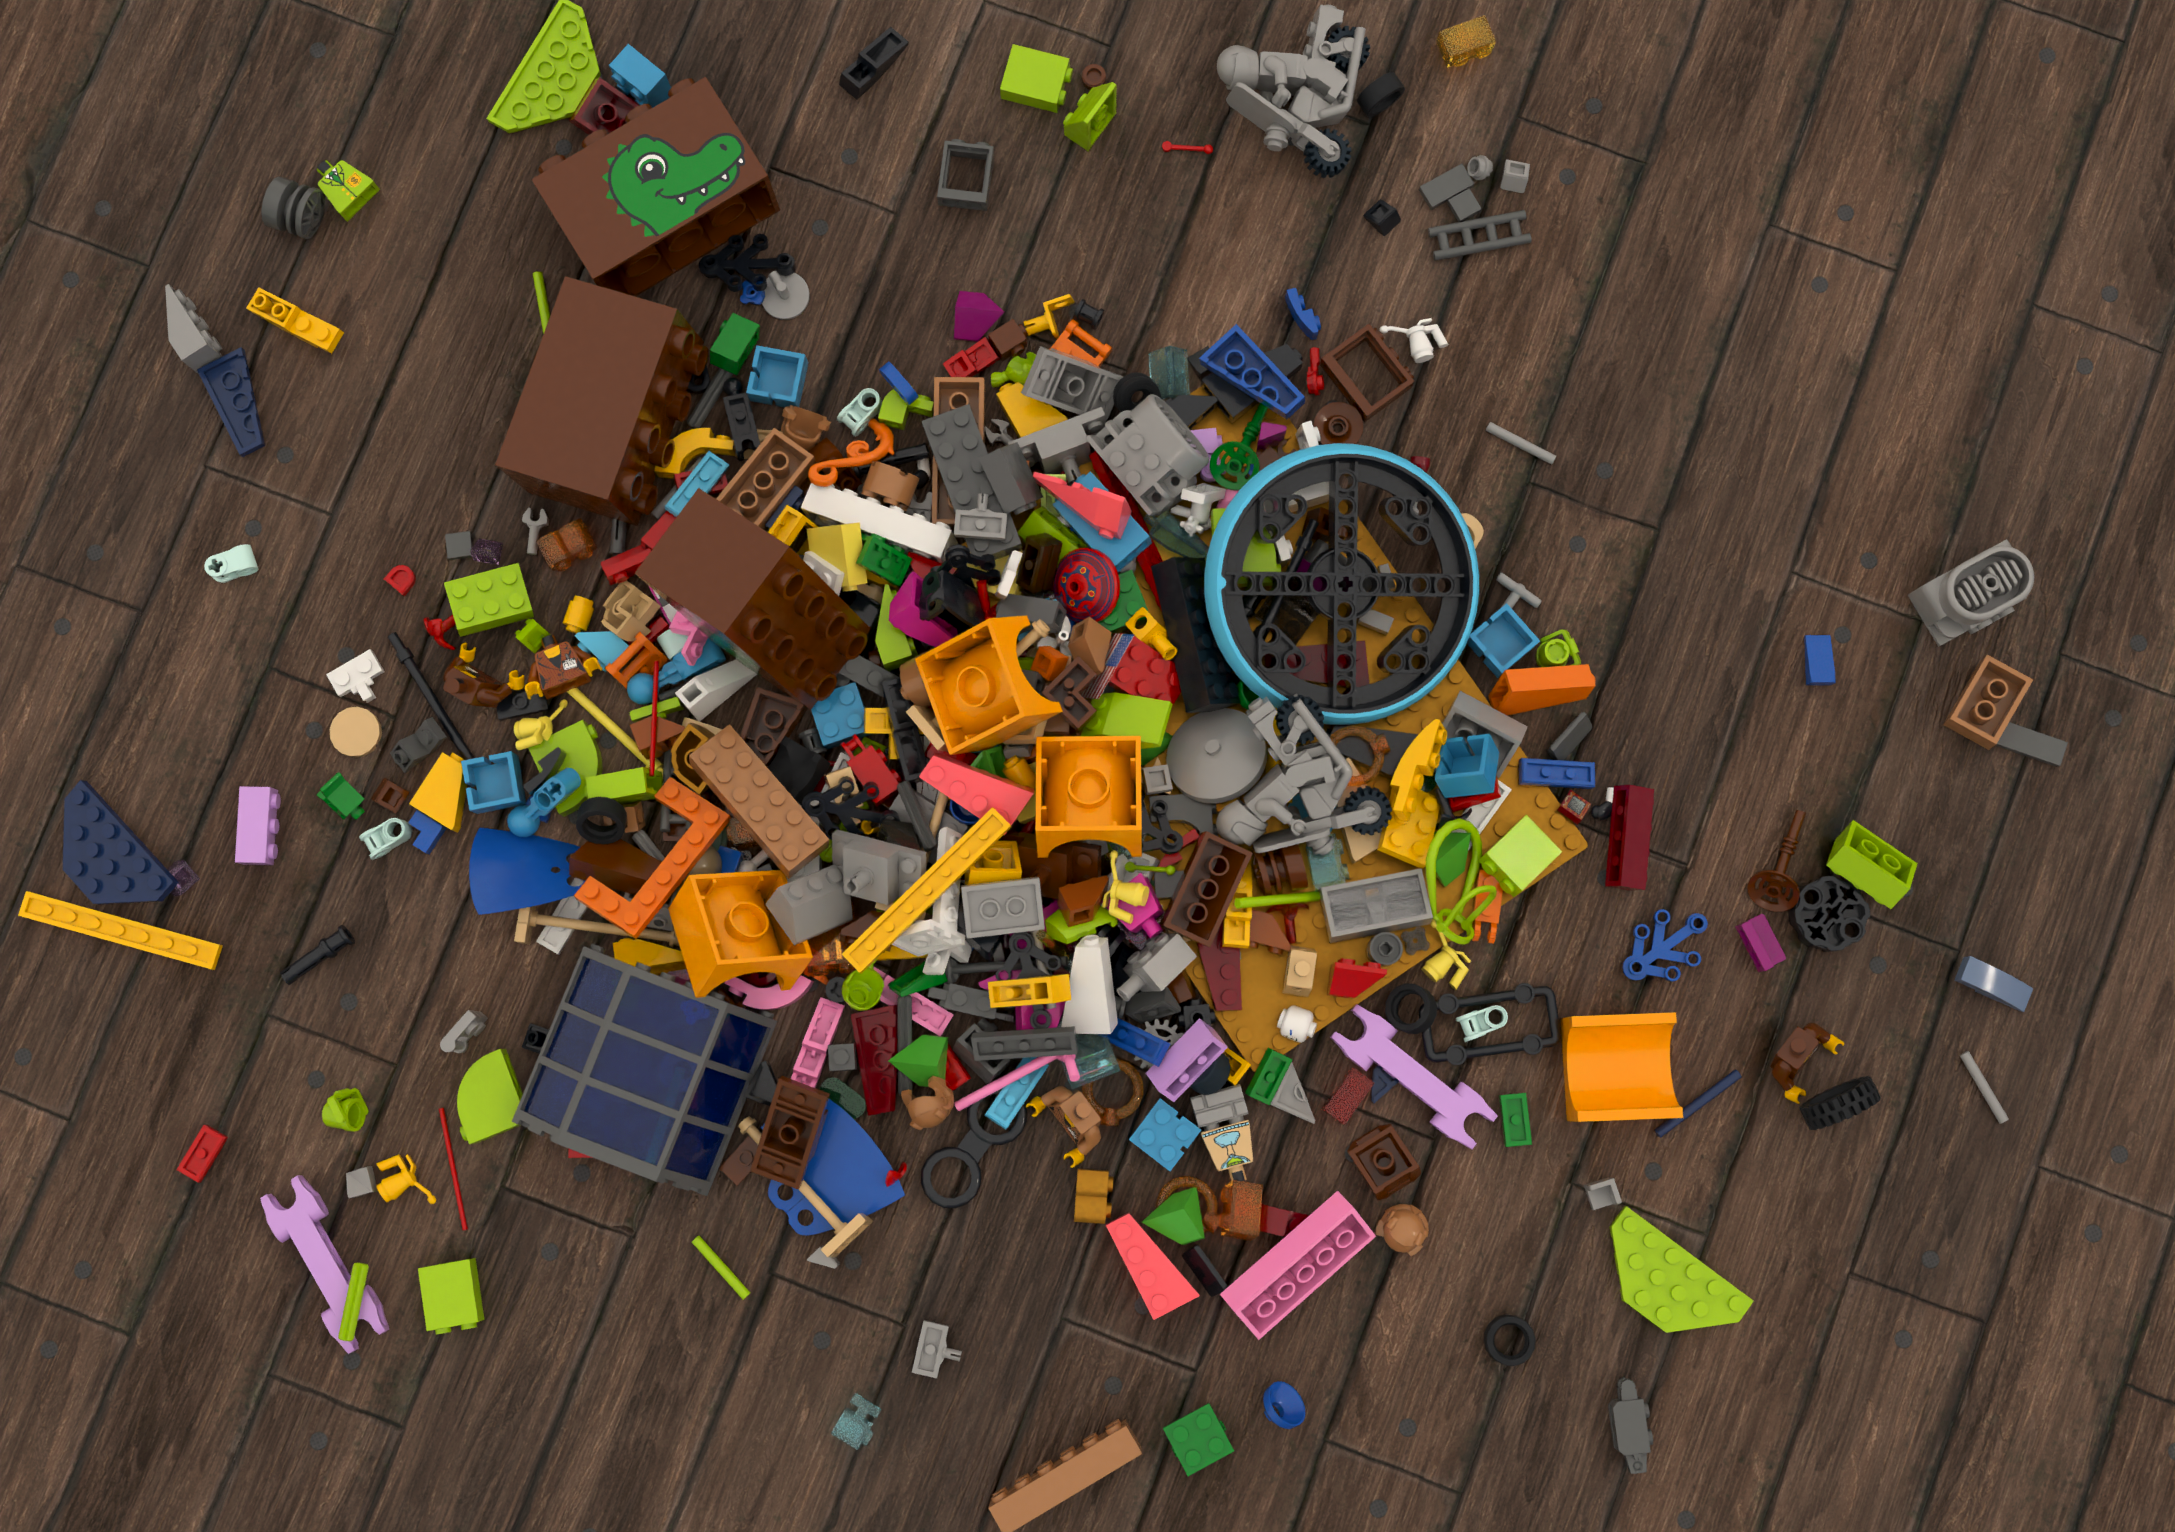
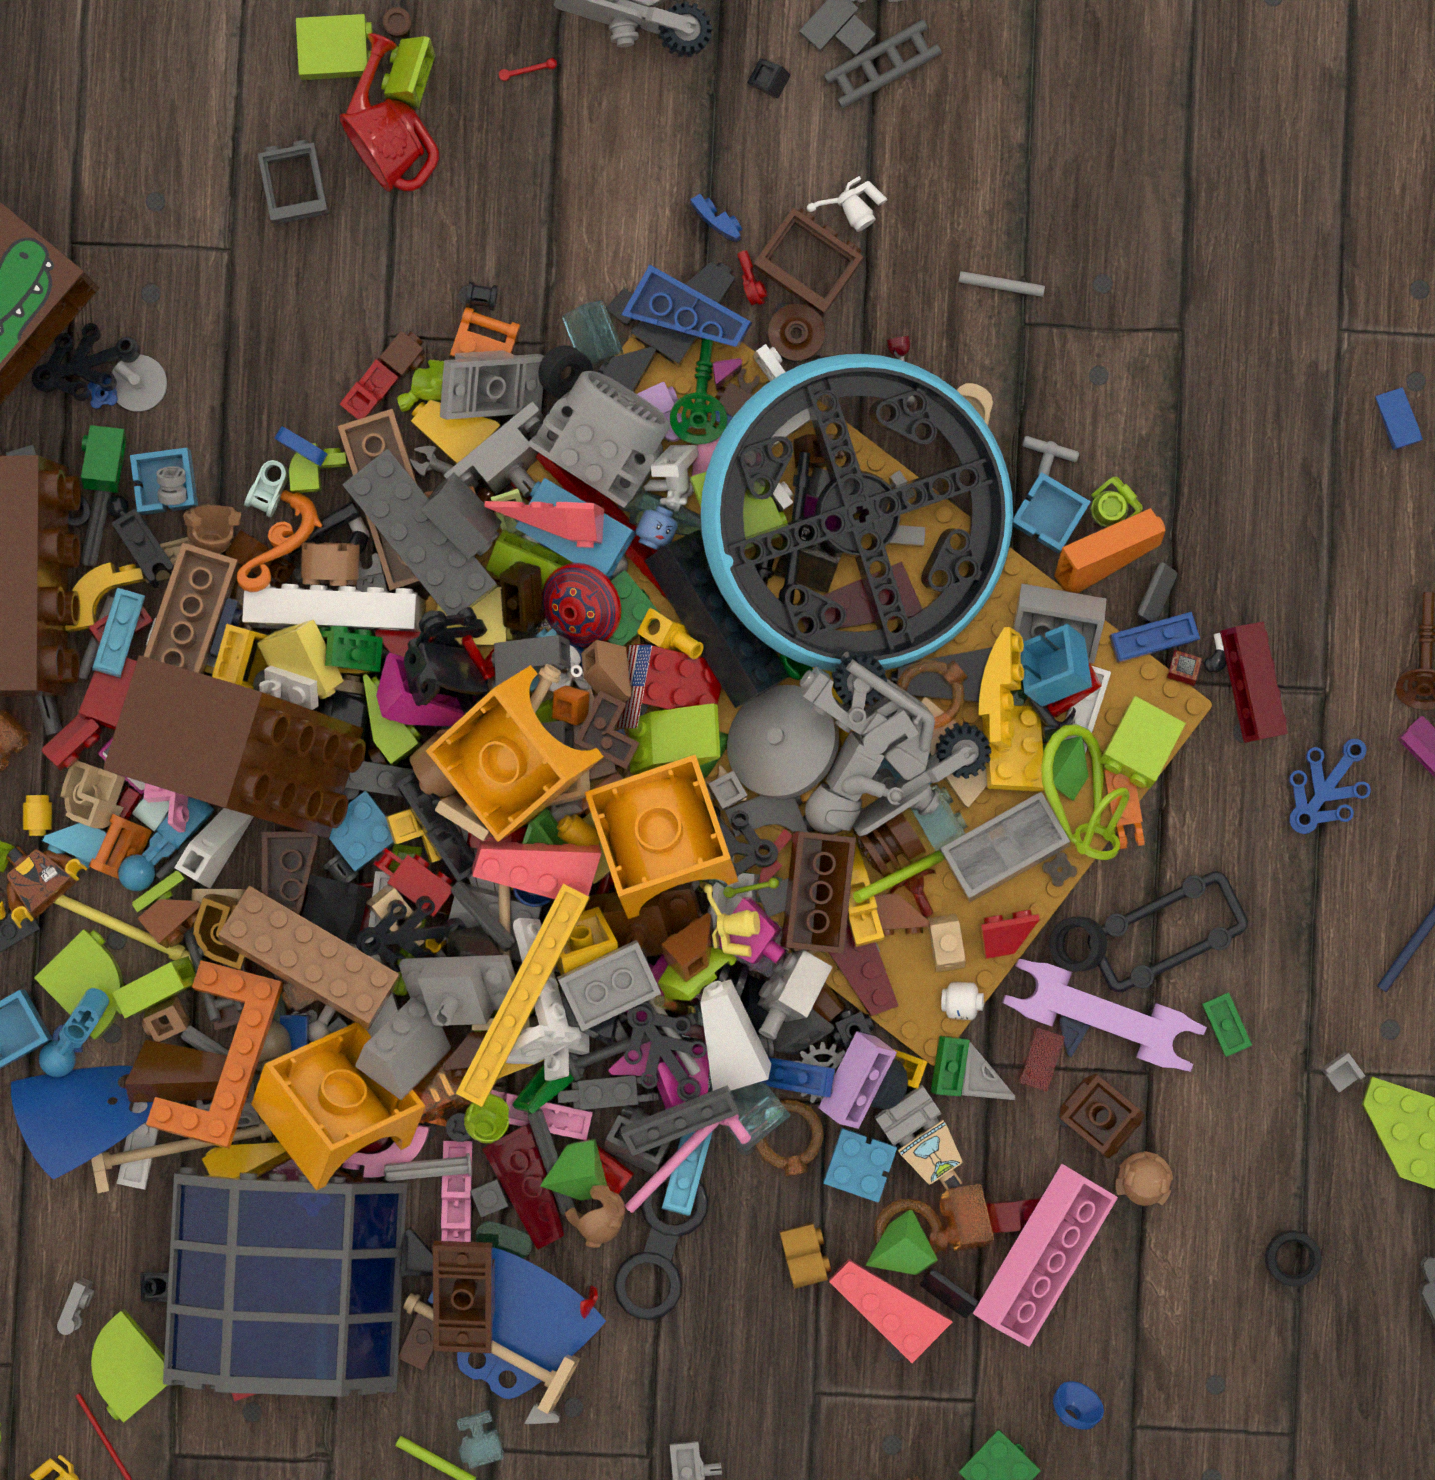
camera: 20 degrees left, 5 degrees up
(534, 730) = (35, 957): light yellow piece -> none
(550, 764) = (67, 991): black slope -> none
(605, 807) = (145, 1046): black tyre -> none
(654, 718) = (162, 903): red piece -> none
(763, 1267) = (482, 1445): none -> clear light blue brick
(781, 380) = (171, 485): none -> light grey wheel
(798, 1014) = (428, 1168): none -> light grey axle
(872, 63) = (146, 87): black slope -> none
(974, 315) = (356, 338): magenta slope -> none
(980, 522) = (445, 577): light grey plate -> none
(1008, 574) = (493, 622): white tile -> none
(1029, 991) = (667, 1064): yellow slope -> none
(1047, 320) = (438, 318): yellow bracket -> none
(1056, 159) = (385, 131): none -> red piece
(1075, 1116) = (758, 1177): medium nougat torso -> none
(1170, 542) = (656, 528): none -> medium blue head
(1384, 949) = (1029, 890): dark grey wheel -> none
(1439, 964) = (1095, 883): light yellow piece -> none
(1480, 1022) = (1157, 933): light aqua piece -> none
(1618, 1067) = (1318, 934): light orange piece -> none

